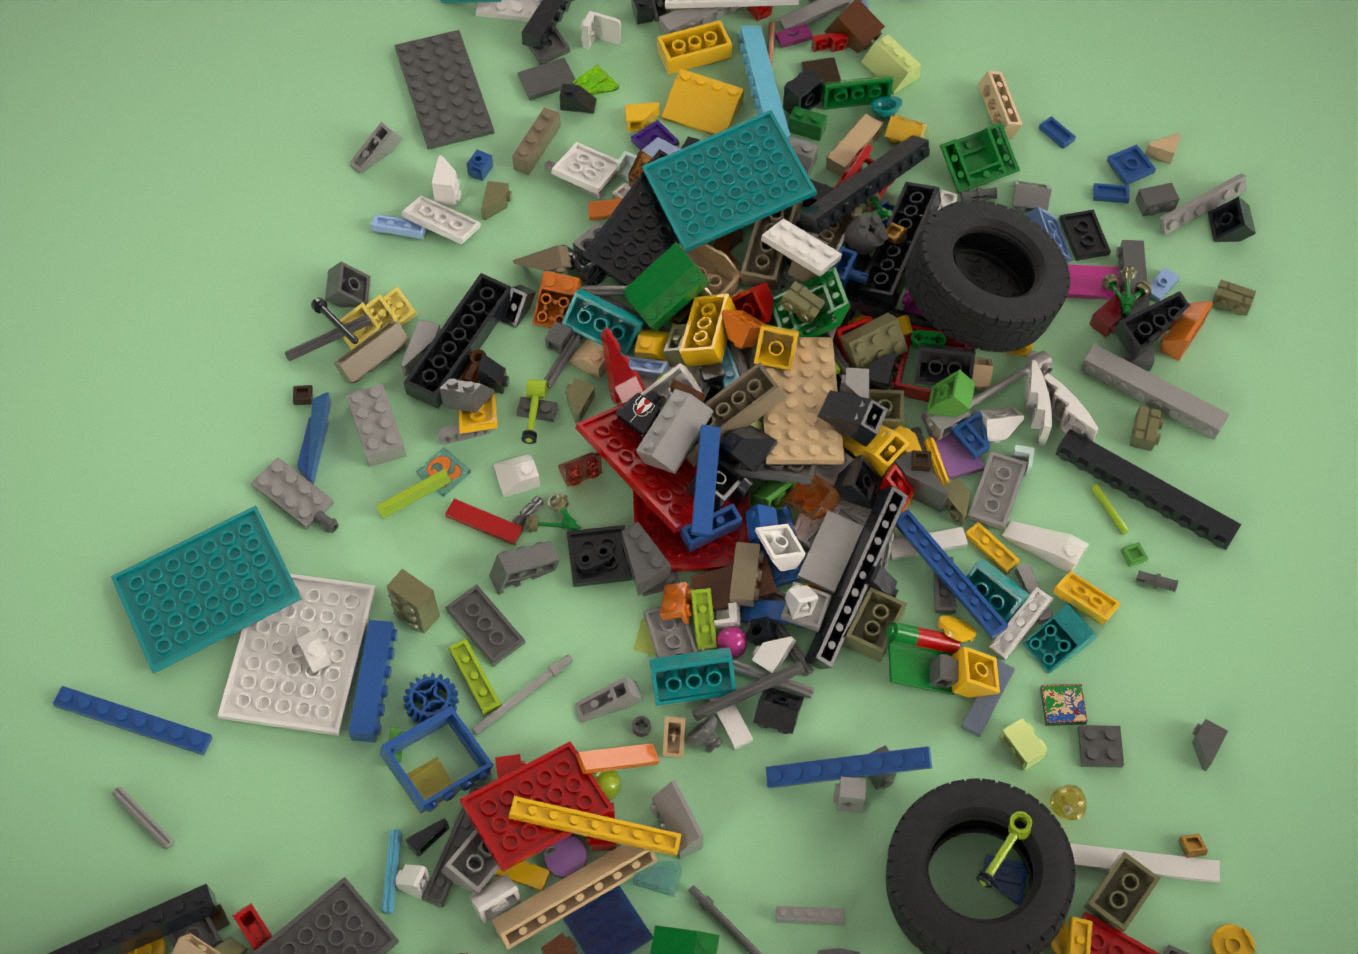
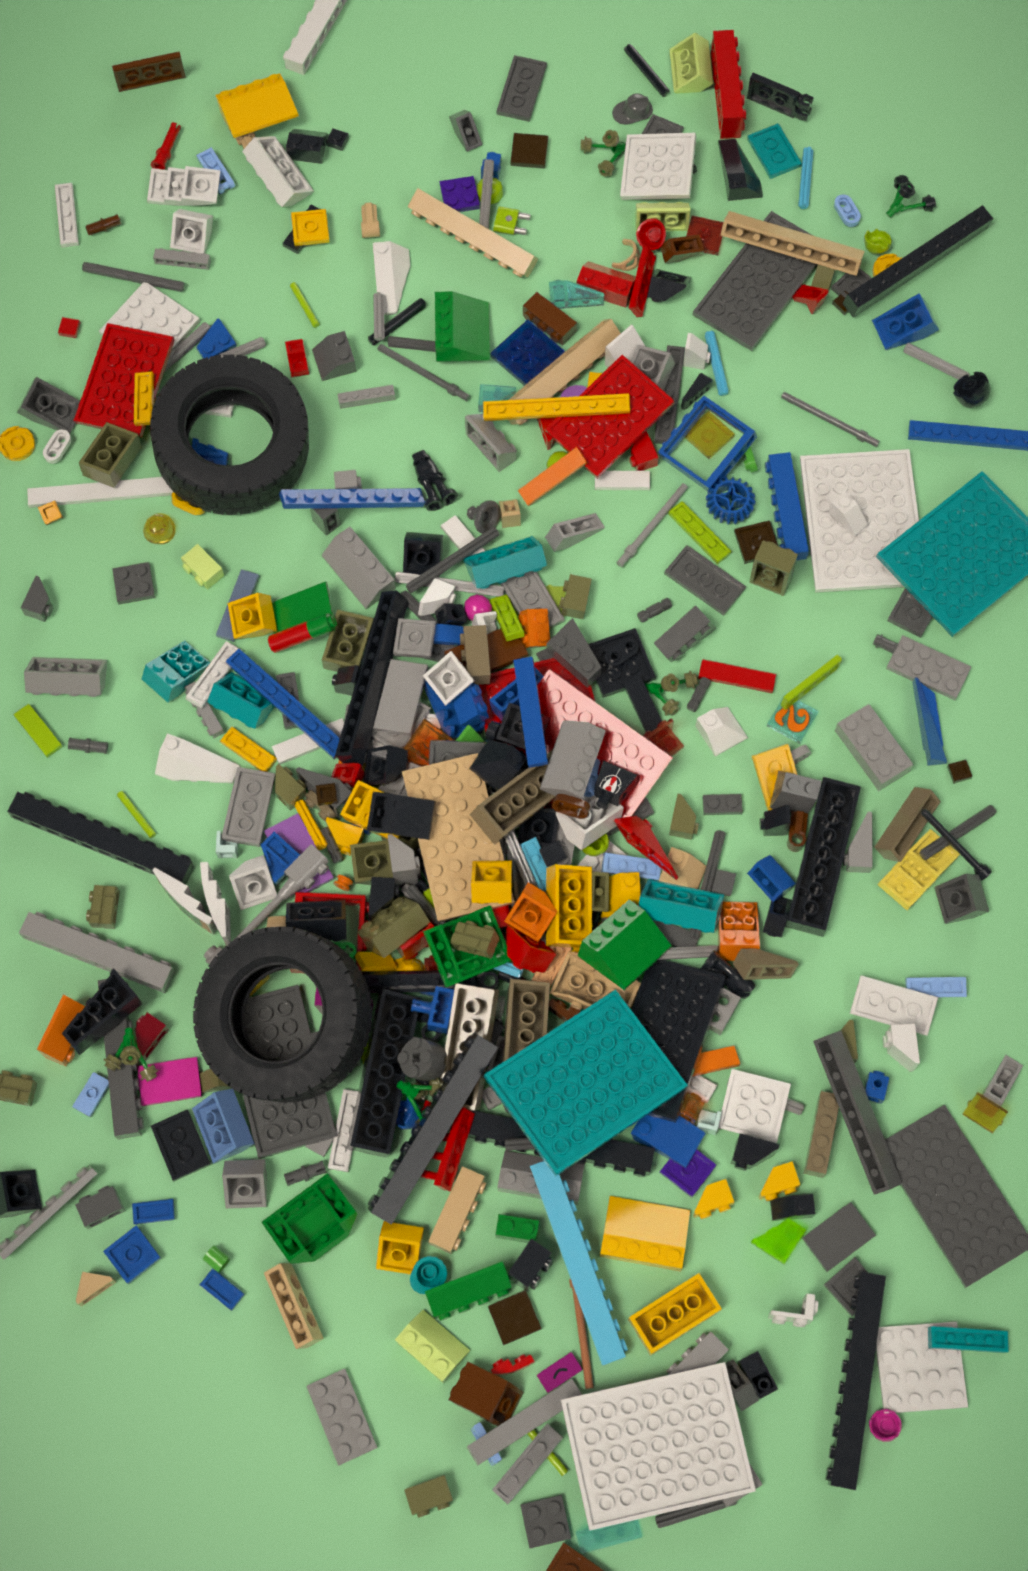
camera: 170 degrees right, 10 degrees up
(120, 764) = (972, 390): none -> black cylinder
(156, 870) = (905, 323): none -> blue slope
(261, 747) = (860, 434): none -> dark grey bar
(291, 543) = (910, 614): none -> dark grey plate
(396, 129) = (985, 1112): none -> clear yellow piece
(417, 654) = (750, 538): none -> dark brown tile
(503, 141) = (857, 1112): none -> dark grey brick
(513, 331) = (771, 878): none -> blue brick
(530, 748) = (623, 480): none -> white tile
(535, 390) = (727, 815): lime piece -> none
(547, 603) = (654, 610): none -> dark grey axle
(583, 117) = (780, 1180): none -> yellow slope
(586, 508) = (642, 703): none -> black tile
(597, 137) = (752, 1151): none -> black slope
(625, 628) = (576, 596): none -> olive brick
(641, 719) = (544, 514): dark grey bush -> none
(754, 799) = (429, 474): none -> black piece
(801, 247) = (488, 1006): white plate -> none
(801, 601) = (418, 625): white slope -> none
(850, 708) = (358, 567): none -> light grey slope
(895, 233) = (391, 1072): pearl gold tile -> none
(913, 406) = (343, 883): none -> orange bush
(943, 671) = (280, 609): dark grey brick -> none
(951, 395) = (305, 879): bright green slope -> none
(956, 628) = (272, 654): yellow tile -> none
(969, 39) = (341, 1417): none -> light grey plate
(986, 877) = (223, 405): lime piece -> none
(1060, 149) = (216, 1259): none -> bright green beam
(1063, 704) = (169, 613): tile -> none
(1086, 598) = (153, 709): yellow plate -> none
(1134, 554) = (110, 771): bright green tile -> none
(1178, 656) = (65, 676): none -> light grey slope
(1183, 928) = (54, 446): none -> white plate
(1209, 609) = (37, 730): none -> lime tile

